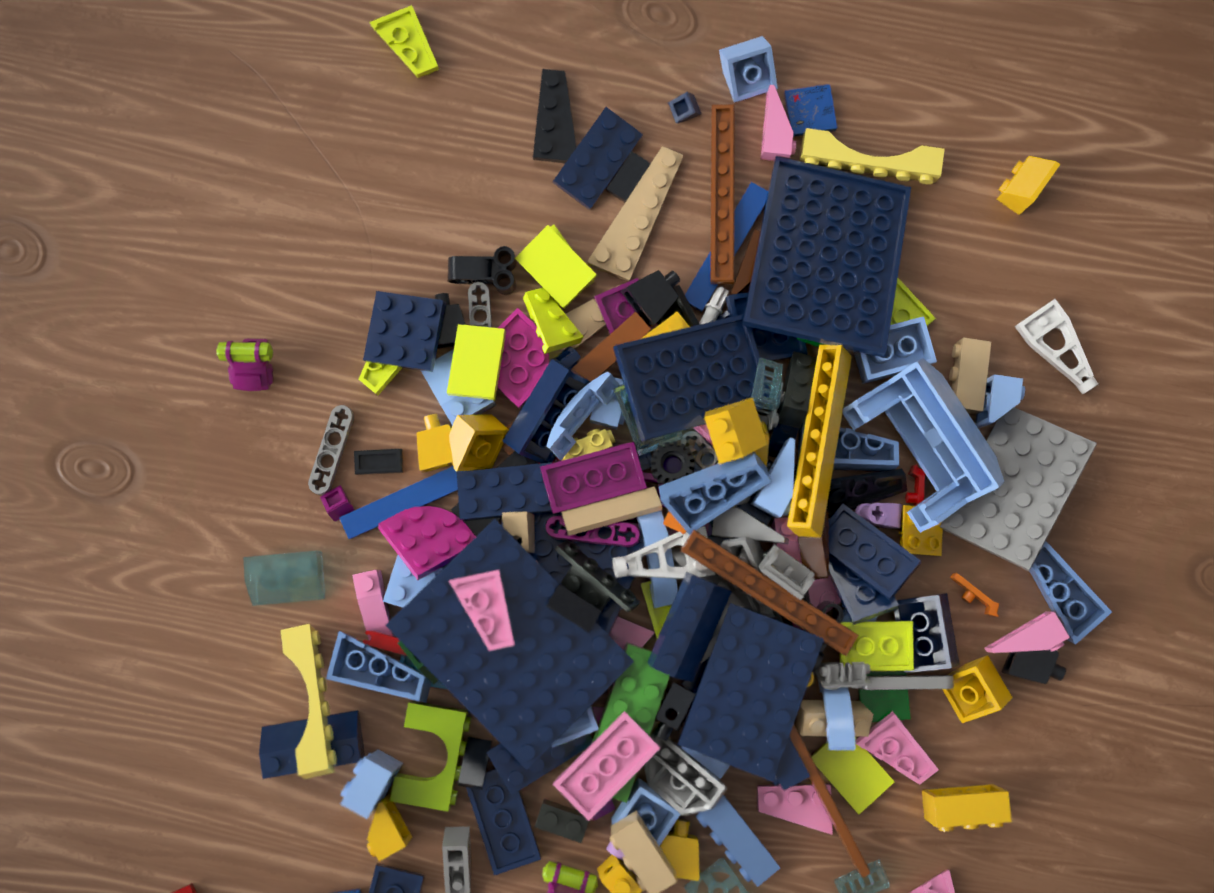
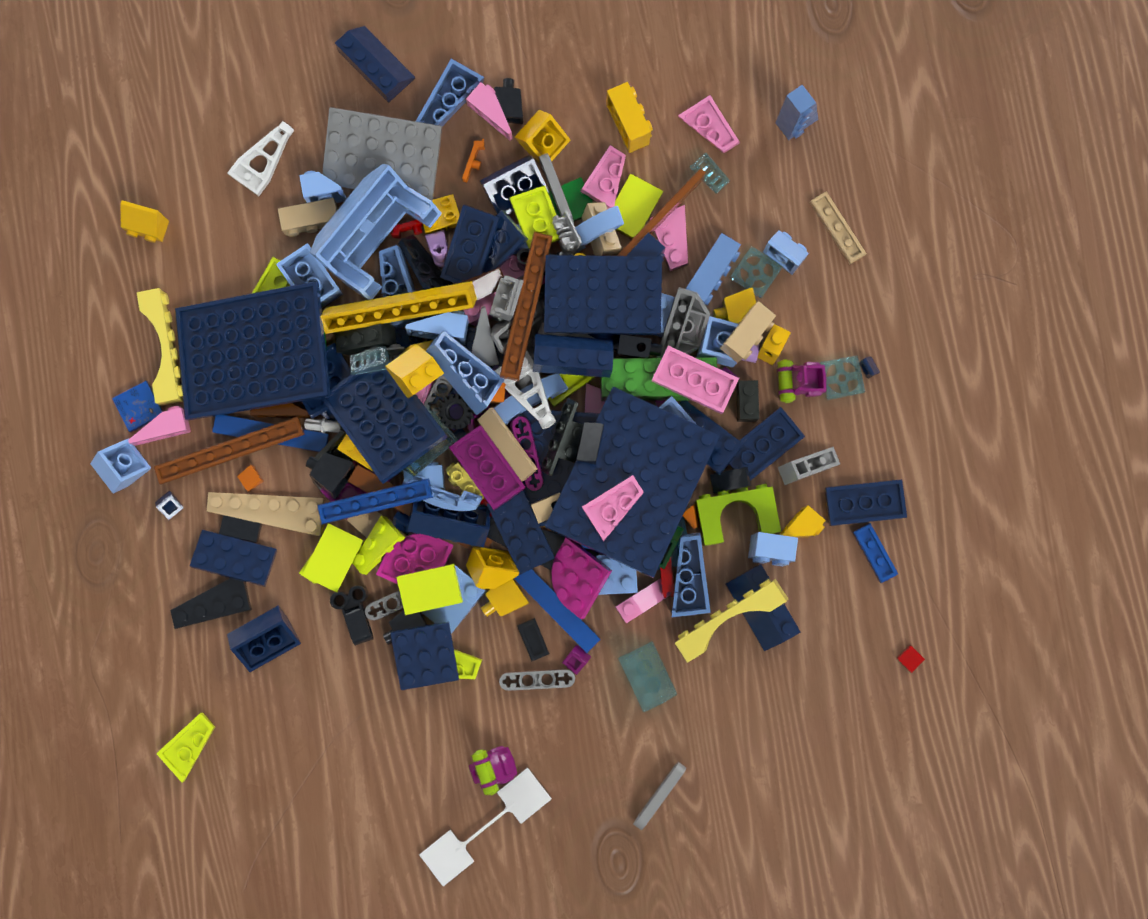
camera: 105 degrees left, 0 degrees up
(145, 541) = (659, 796): none -> light grey beam
(207, 385) = (449, 856): none -> white hinge
(448, 700) = (691, 516): none -> orange slope
(494, 160) = (263, 639): none -> dark blue slope
(599, 335) = (375, 501): none -> blue tile
(682, 207) = (250, 478): none -> orange slope
(1137, 518) = (374, 62): none -> dark blue slope

